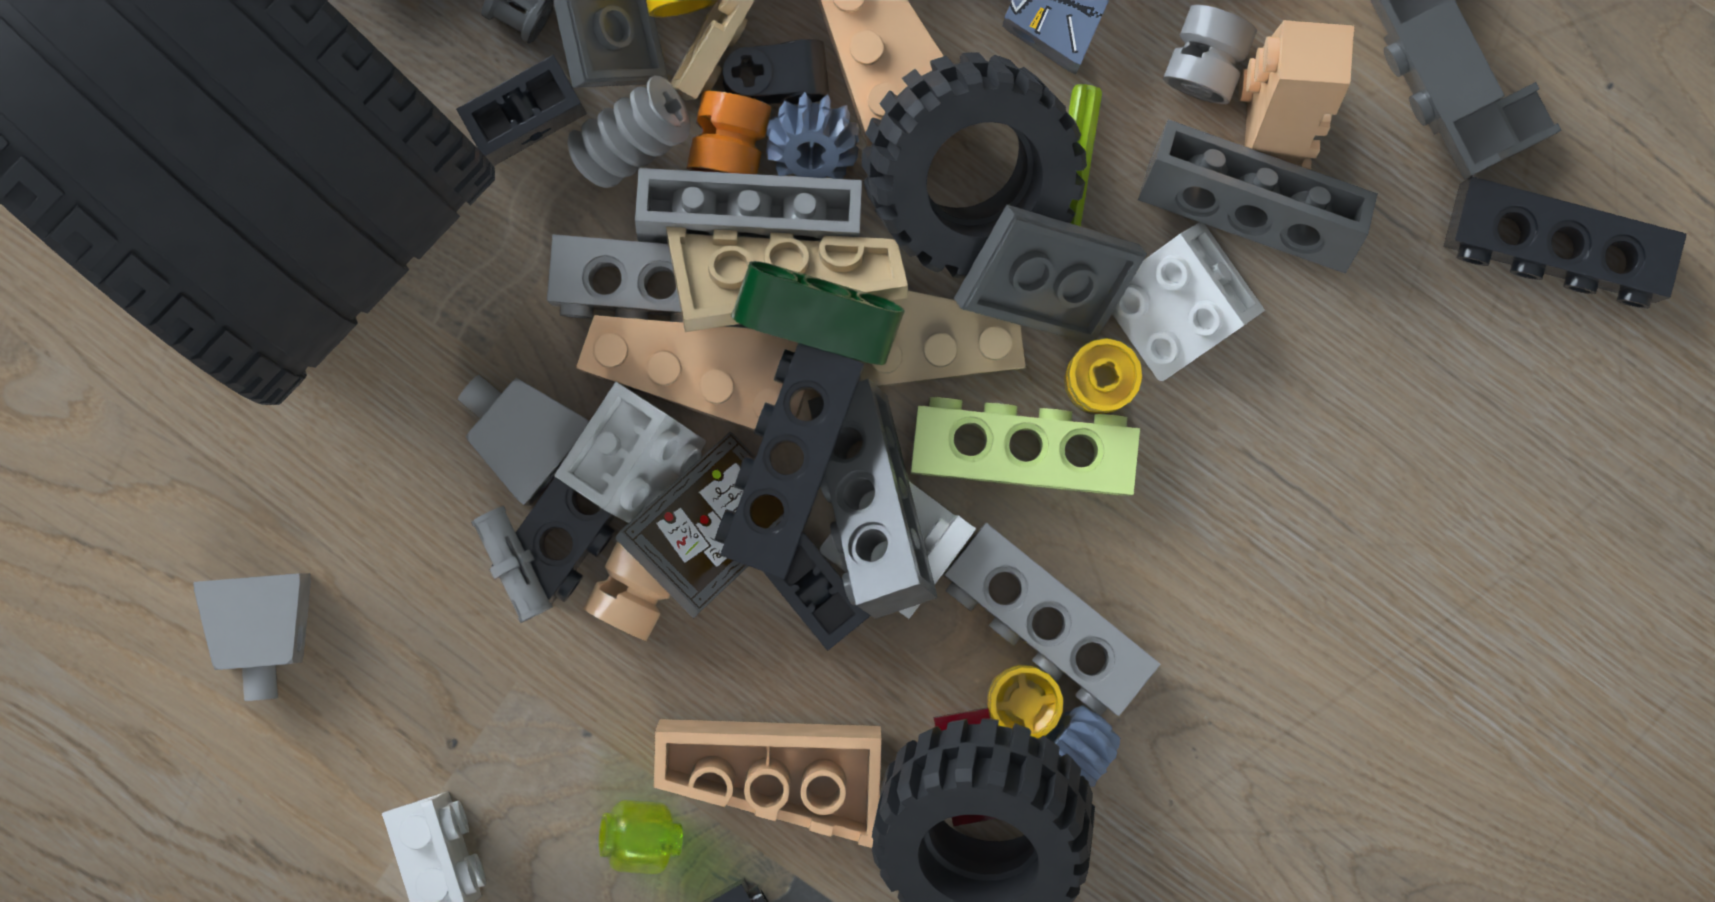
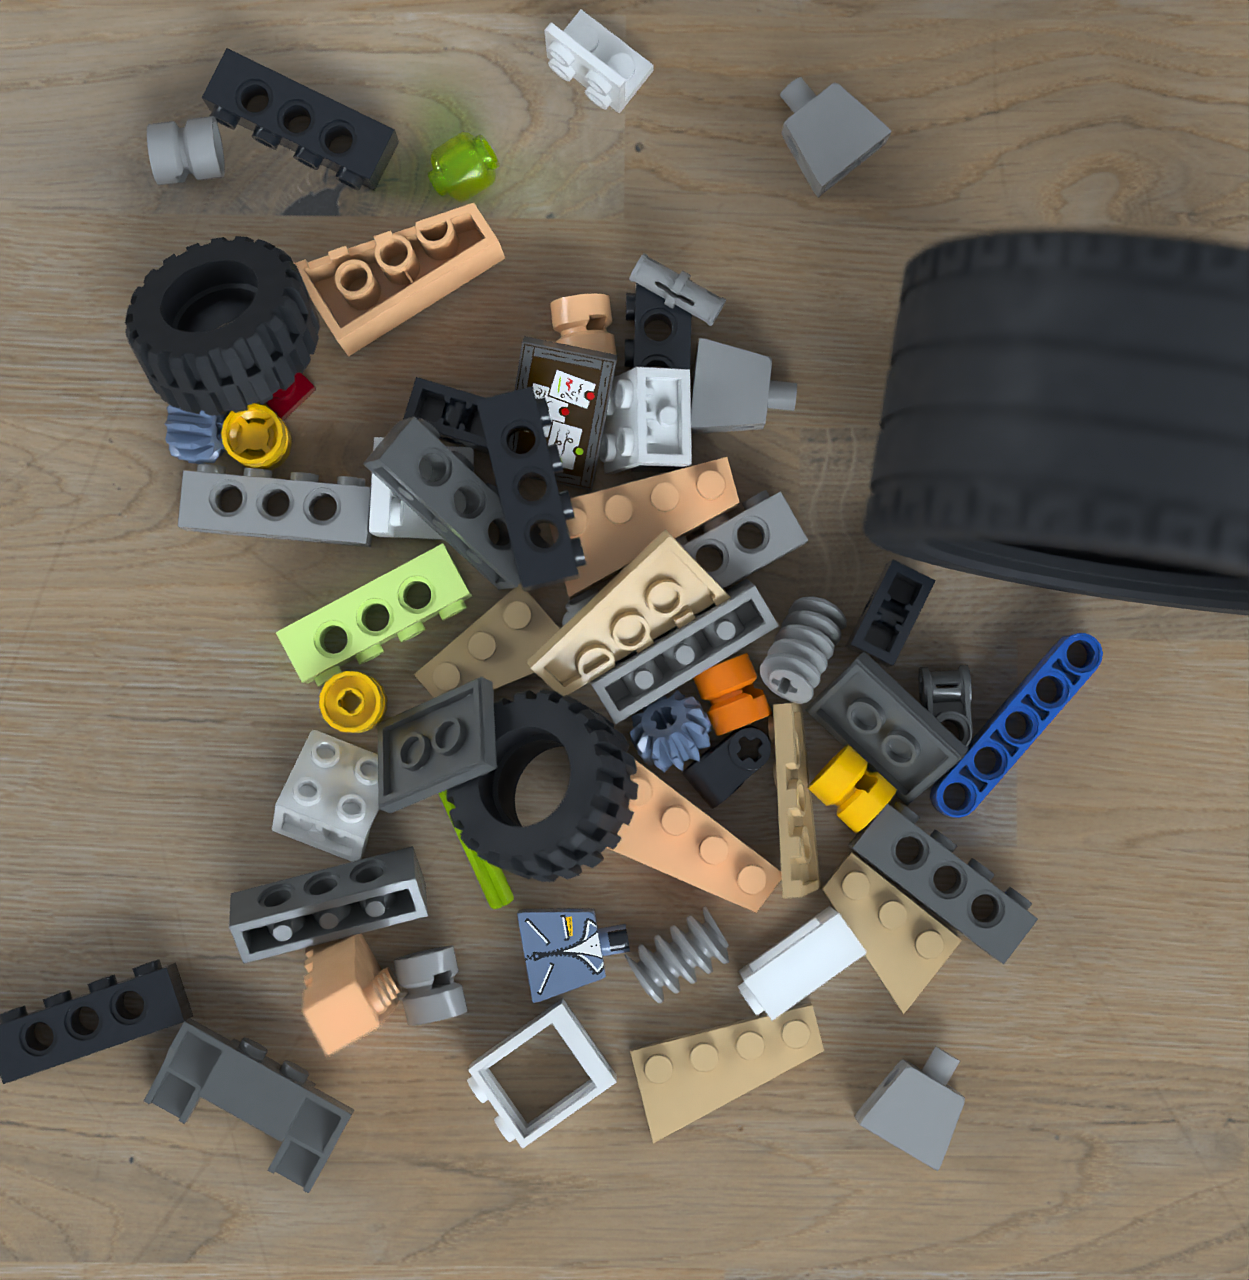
camera: 140 degrees right, 0 degrees up
(817, 313) = (579, 602): dark green beam -> none

